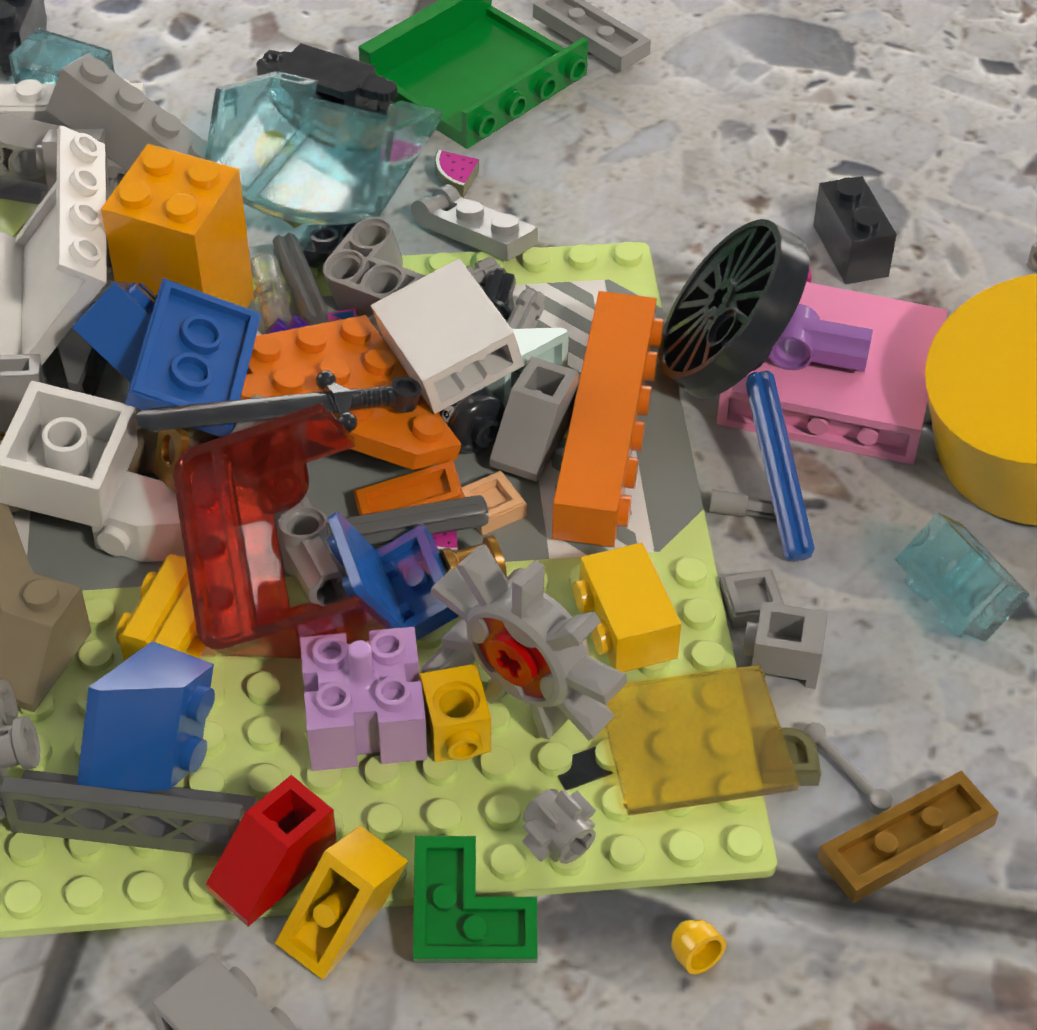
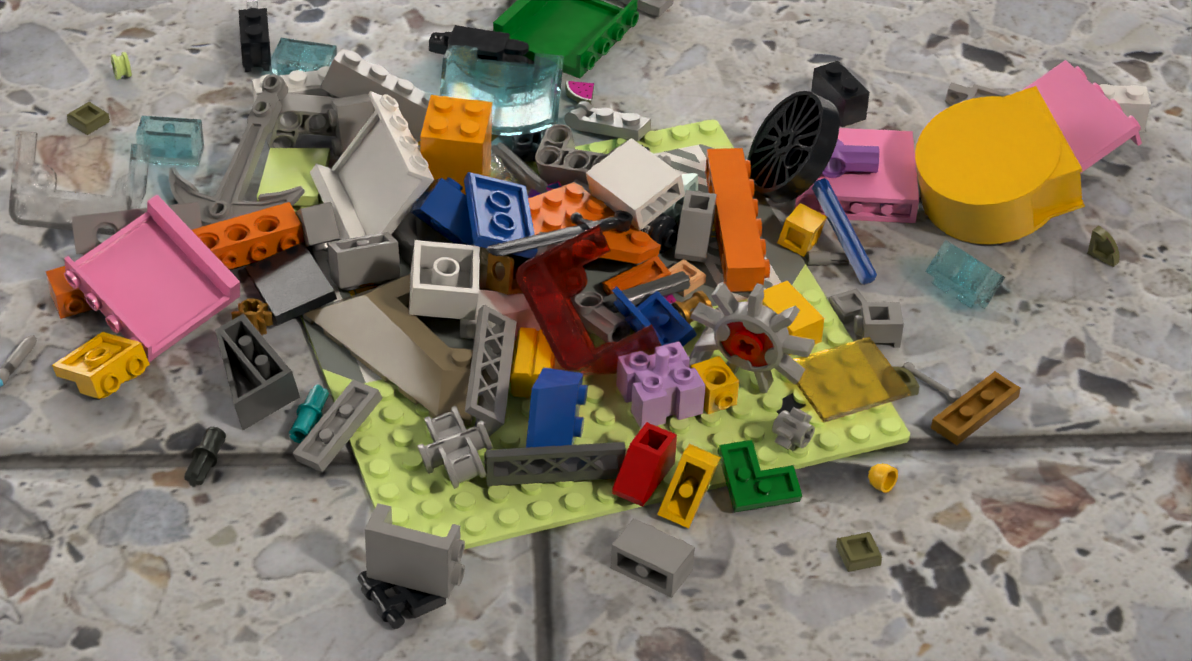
camera: 15 degrees left, 5 degrees down
(95, 625) = (496, 368): none -> light grey fence
(712, 451) = (802, 230): none -> yellow brick

